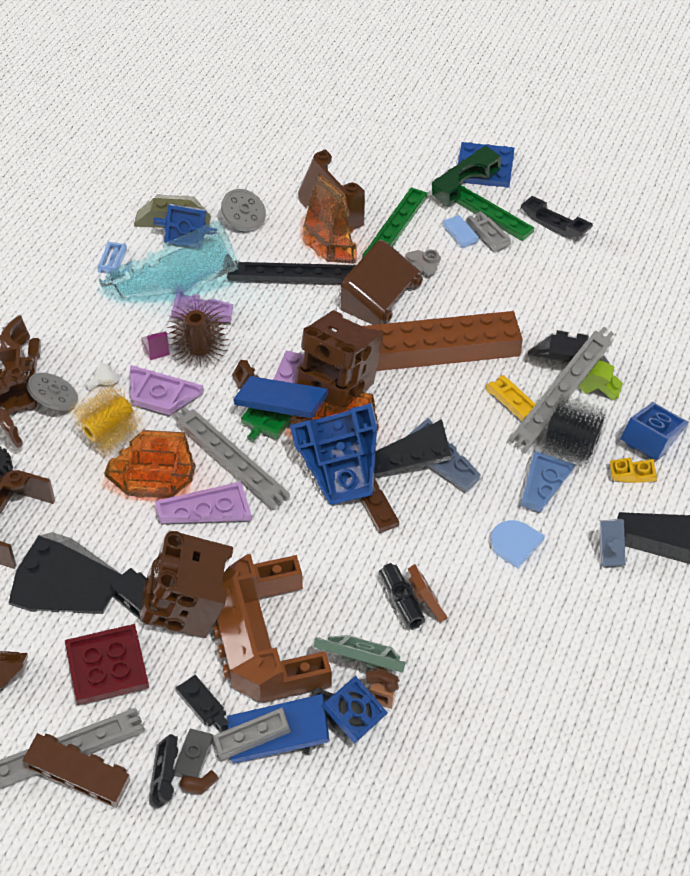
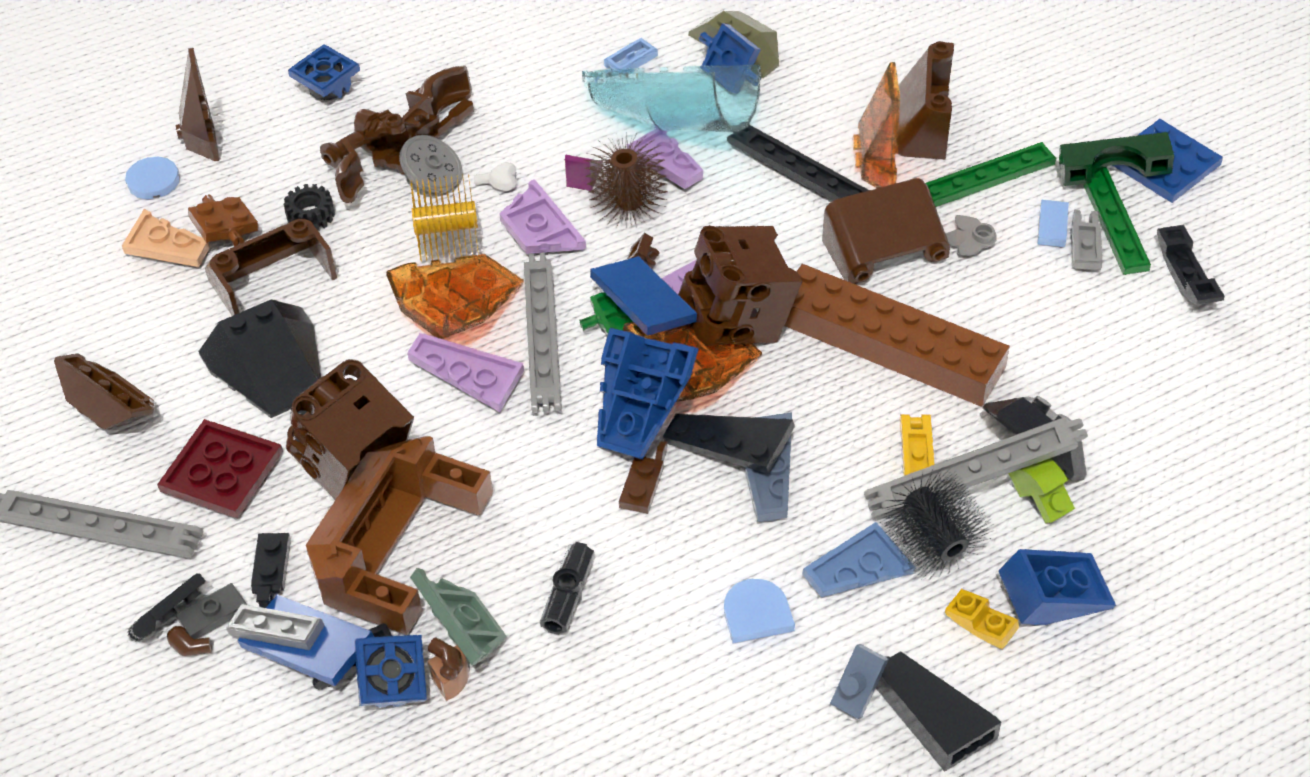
camera: 40 degrees right, 0 degrees up
(76, 770) = (88, 551): reddish brown brick -> none
(243, 209) = (814, 72): light grey shield -> none
(424, 592) = (593, 599): dark orange wing -> none

